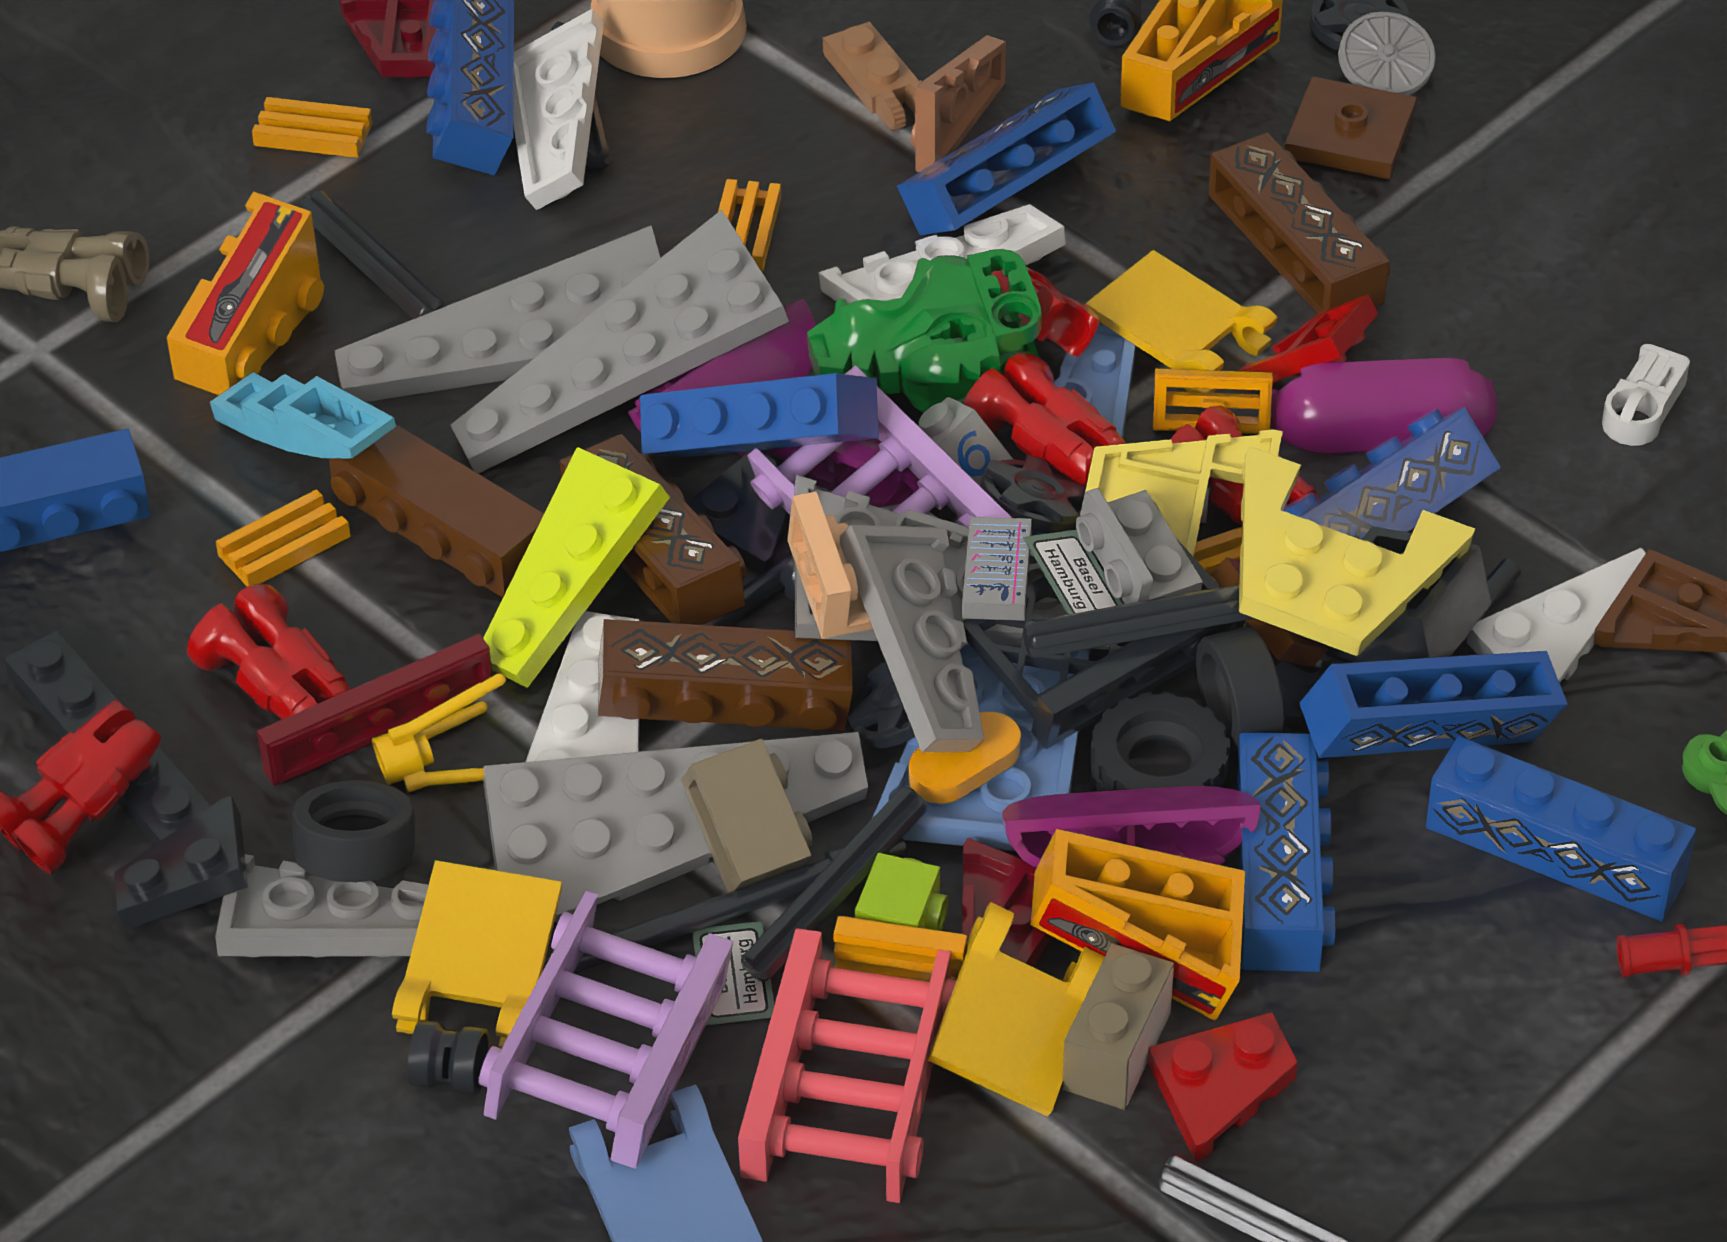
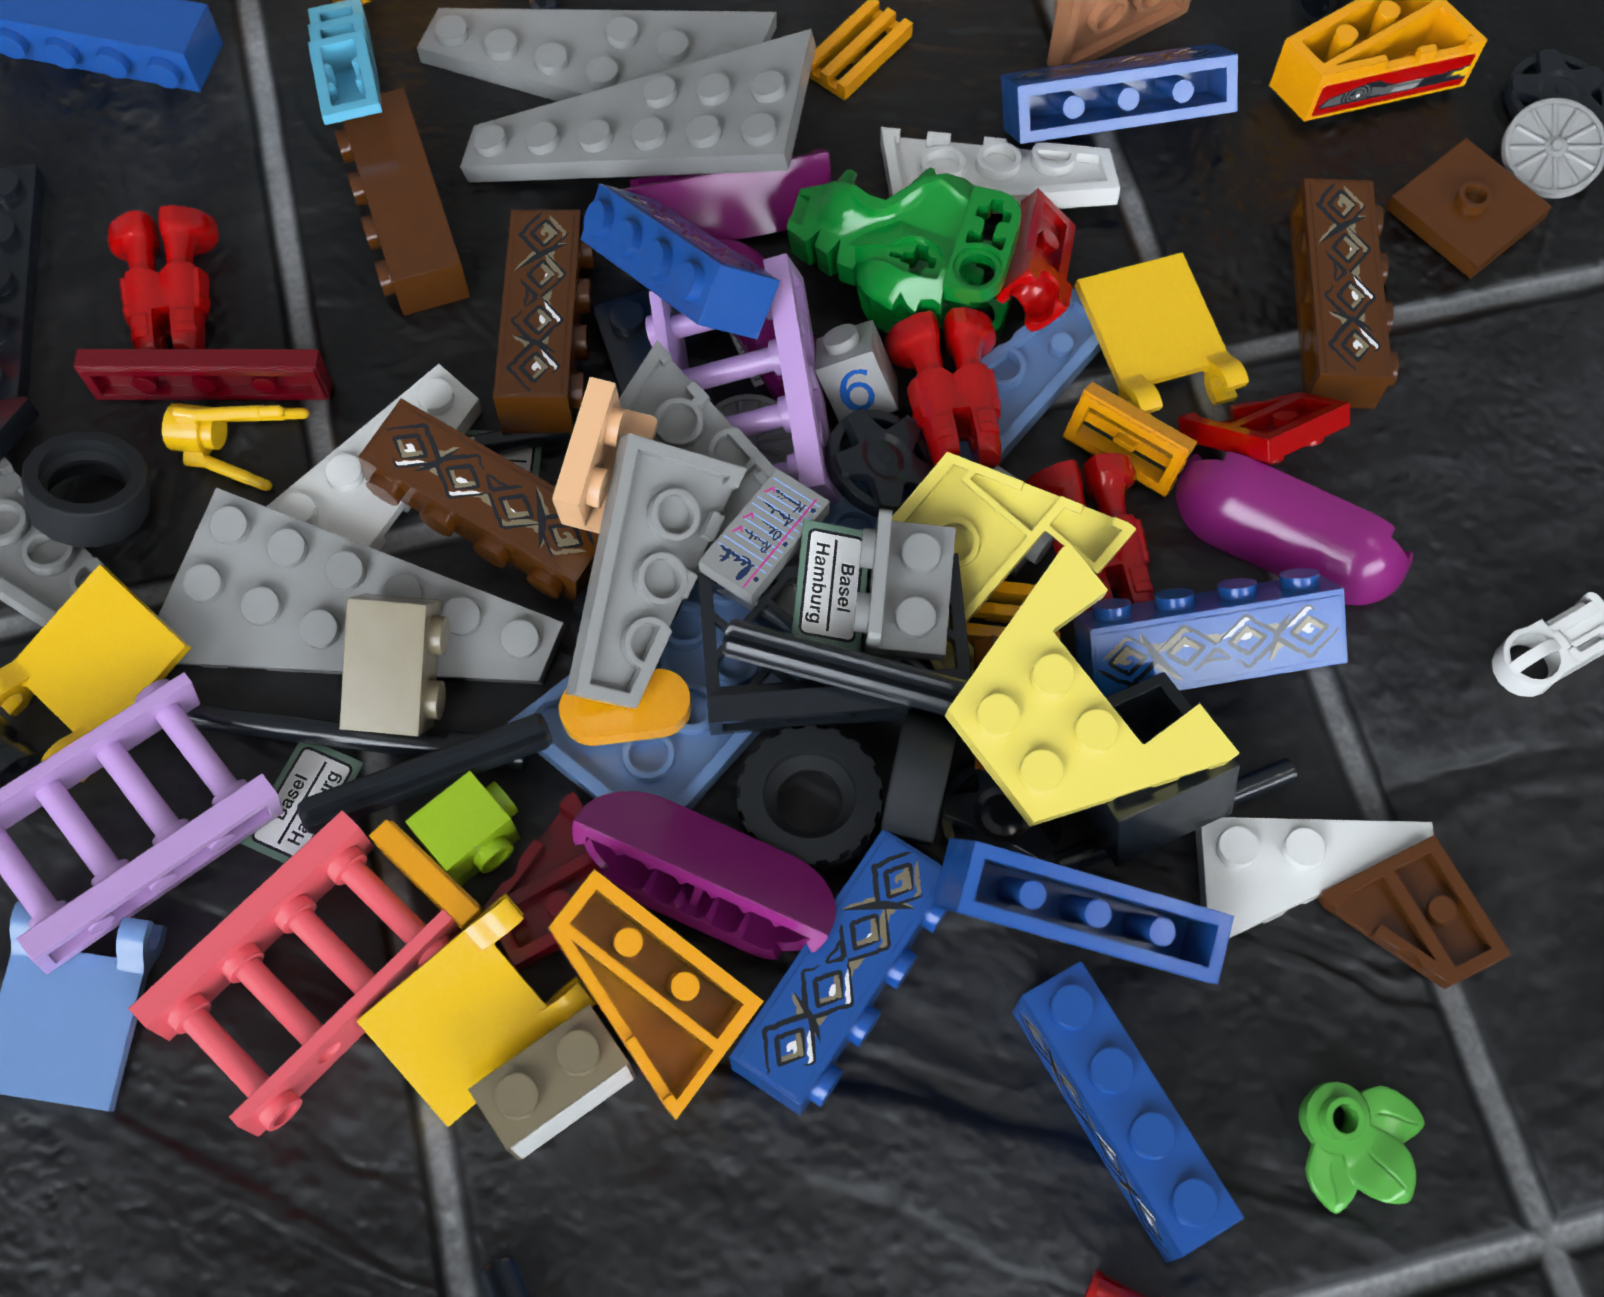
camera: 30 degrees right, 20 degrees up
(278, 533) = (272, 159): light orange tile -> none
(573, 554) = (452, 310): neon yellow wing -> none
(1221, 1077) = (620, 1188): red wing -> none

